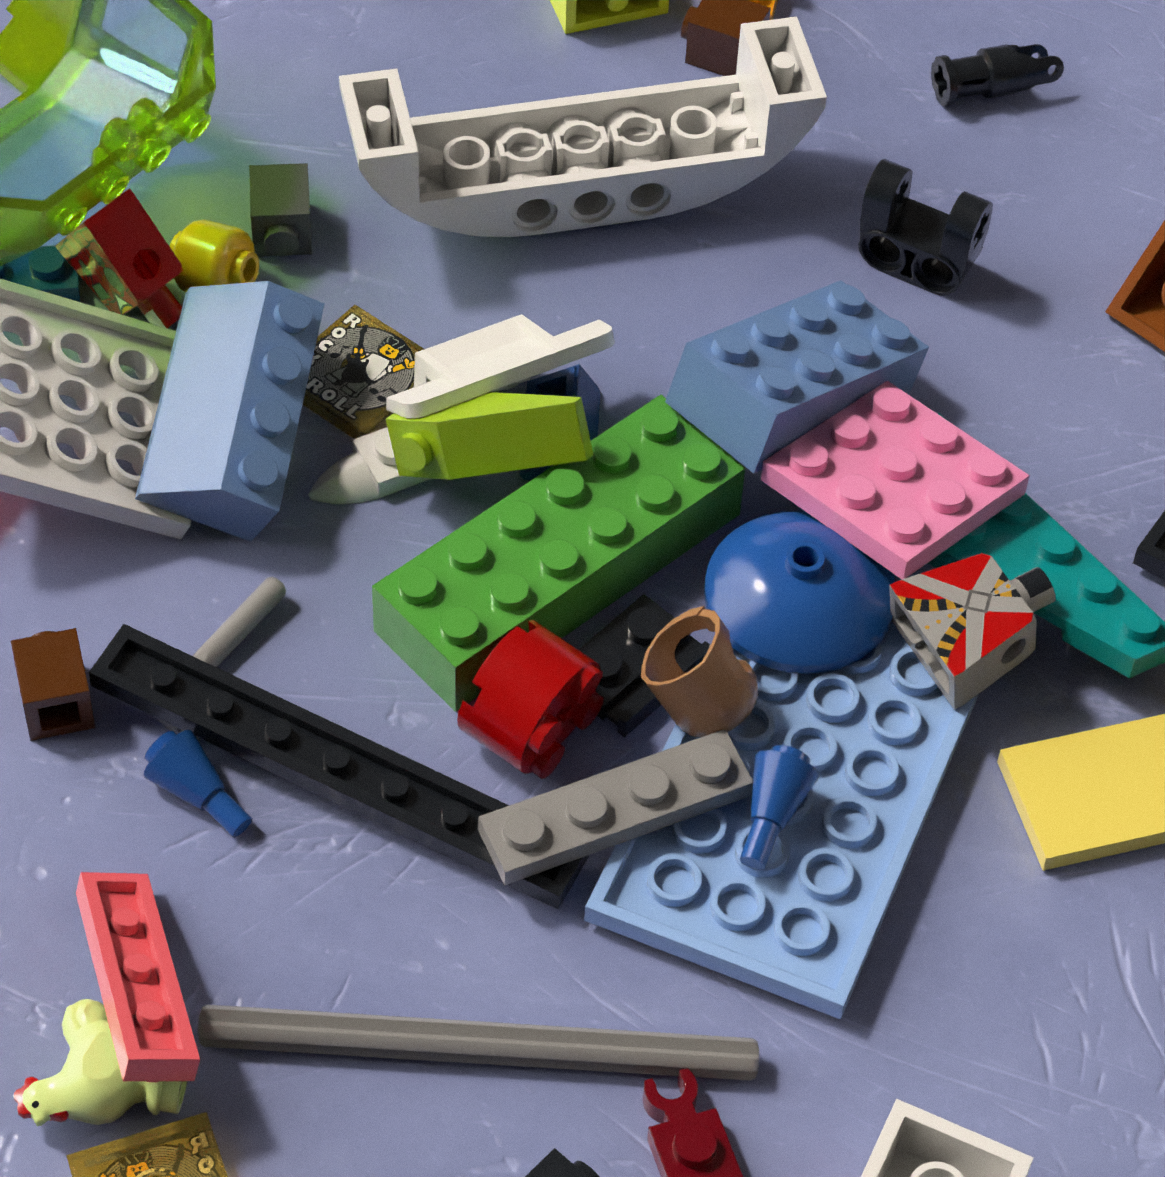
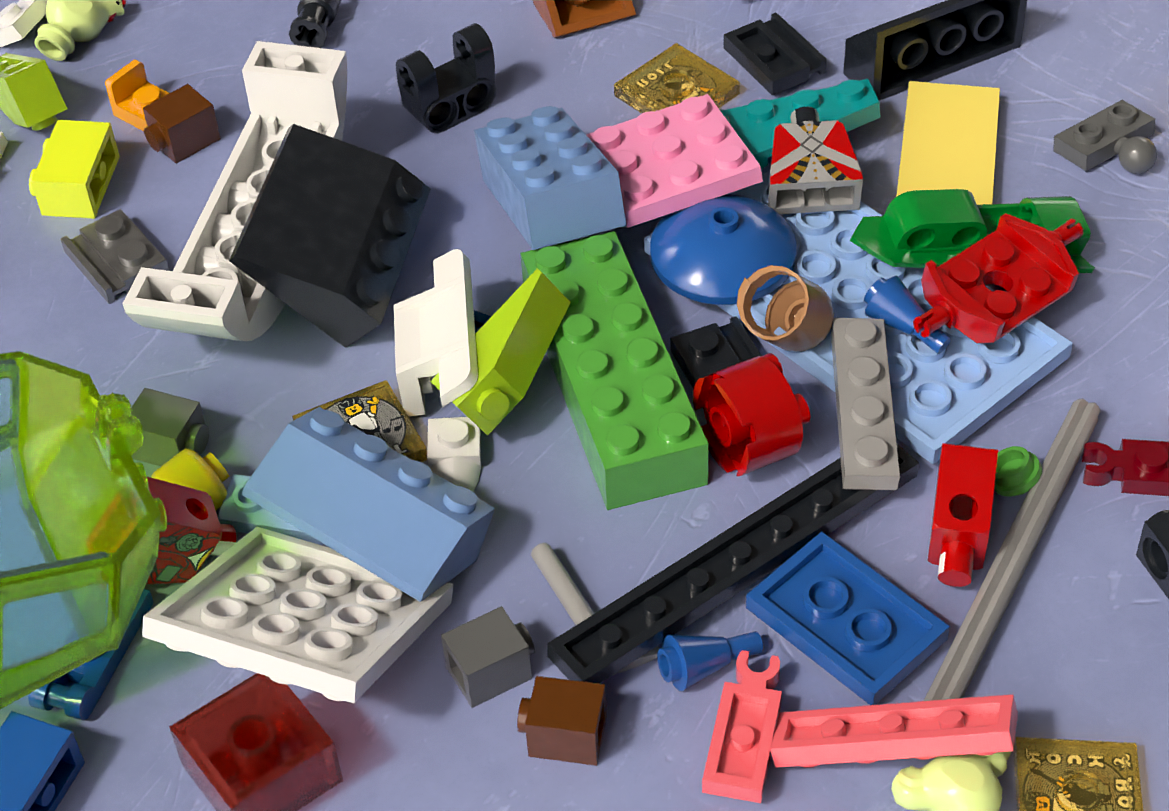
camera: 60 degrees left, 5 degrees down
(106, 586) = (488, 656): none -> dark grey brick
(110, 843) = (744, 733): none -> coral plate
(303, 897) = (847, 618): none -> blue plate
(483, 956) = (962, 512): none -> red torso
(512, 67) = (112, 254): none -> flat silver plate
(599, 212) = (331, 231): none -> black slope
(601, 1002) = (1016, 471): none -> bright green plate
(841, 845) = (1016, 256): none -> red plate
(967, 845) = (948, 221): none -> green panel
(1086, 461) = (673, 78): none -> clear yellow tile

